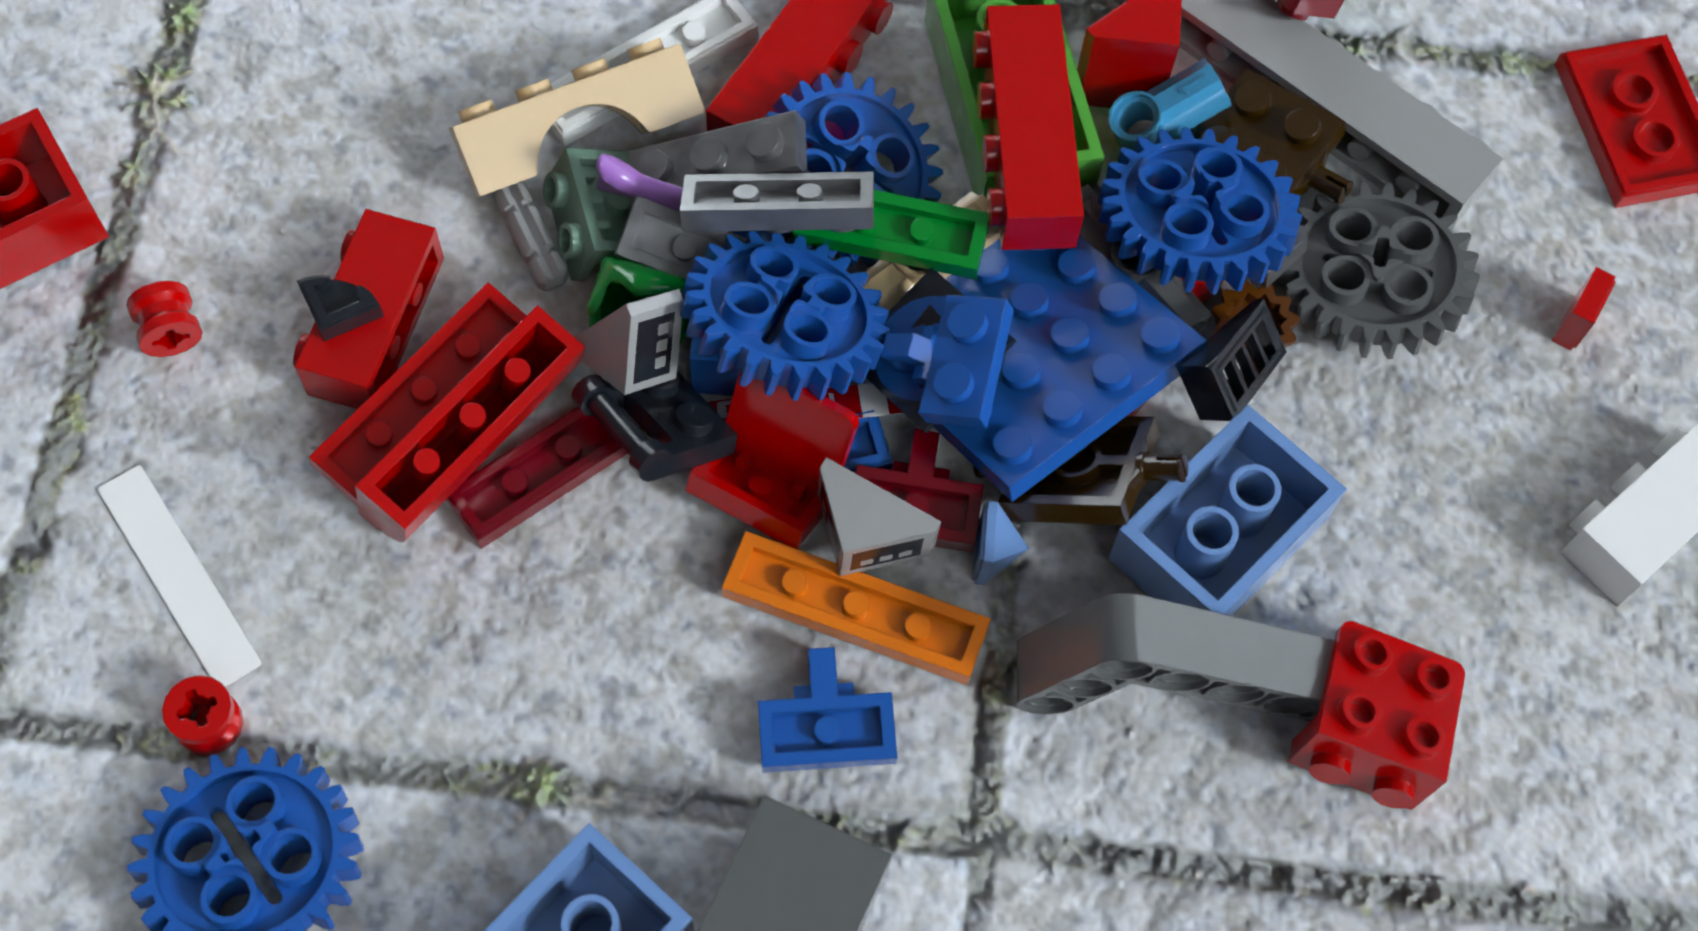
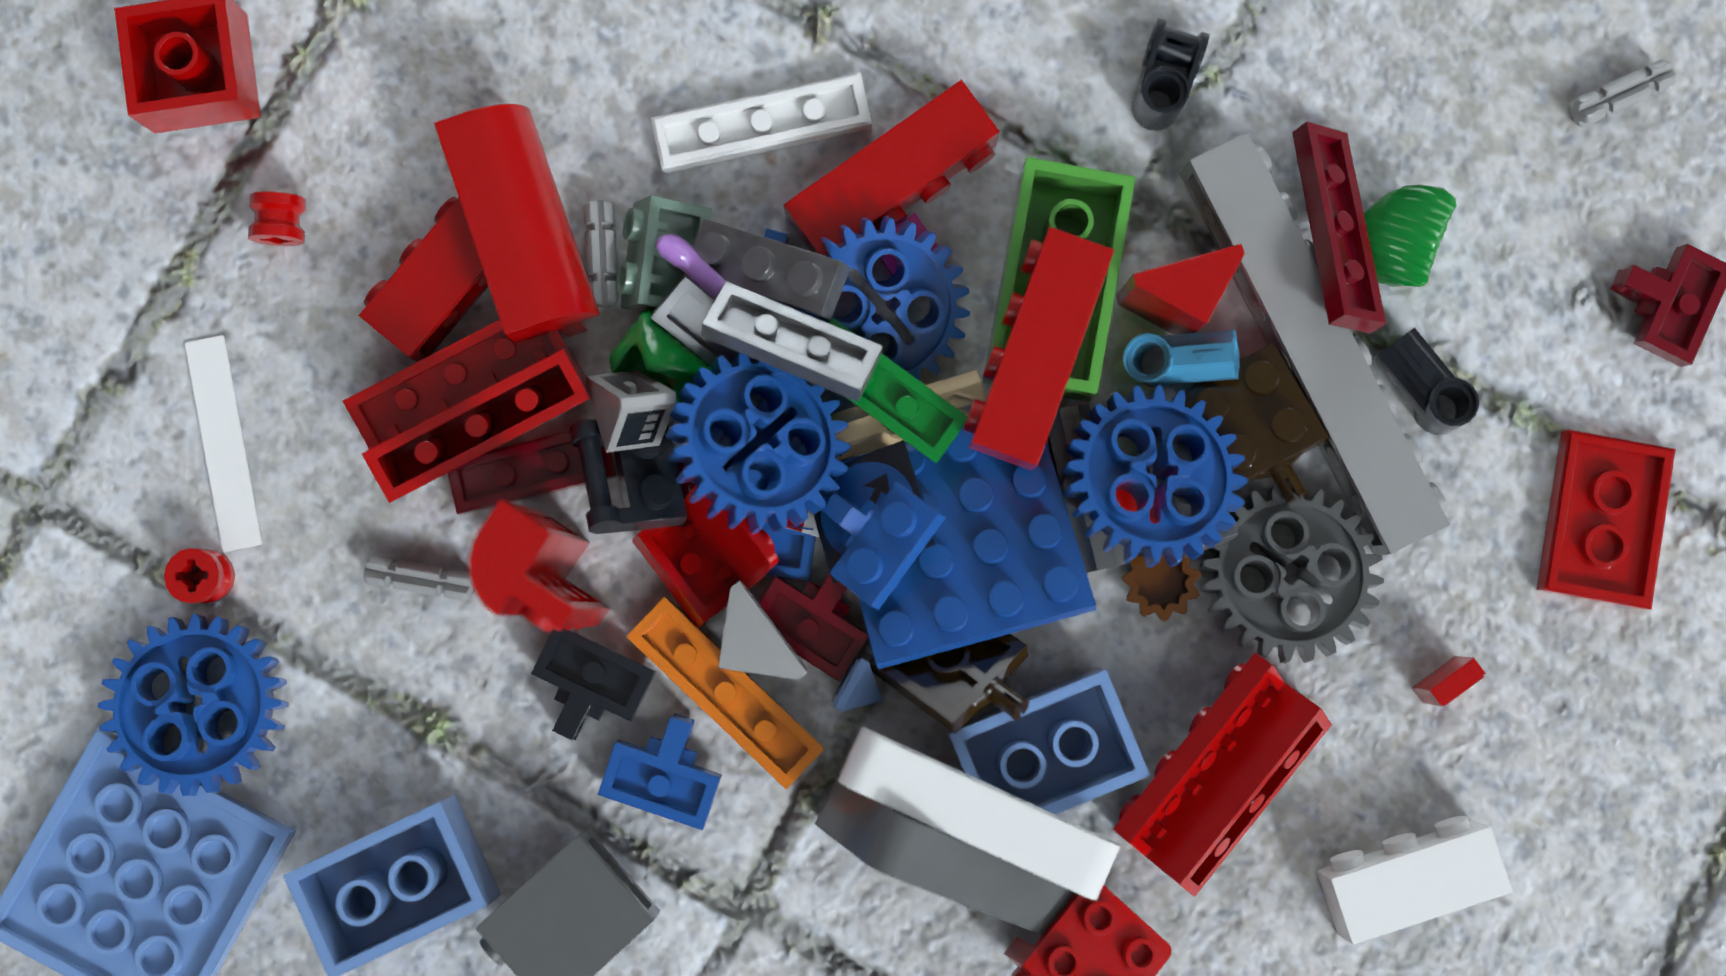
camera: 25 degrees right, 20 degrees up
(338, 305) = (408, 275): black tile -> none
(436, 212) = (517, 221): none -> red brick
(460, 624) = (418, 578): none -> light grey axle
(505, 143) = (738, 158): tan arch -> none
(610, 522) = (523, 567): none -> red brick
(700, 653) = (590, 680): none -> black hinge
(1202, 370) = (1102, 634): black slope -> none
(1247, 580) = (978, 813): none -> white beam
(1414, 481) = (1222, 774): none -> red brick
(1427, 64) = (1424, 376): none -> black piece

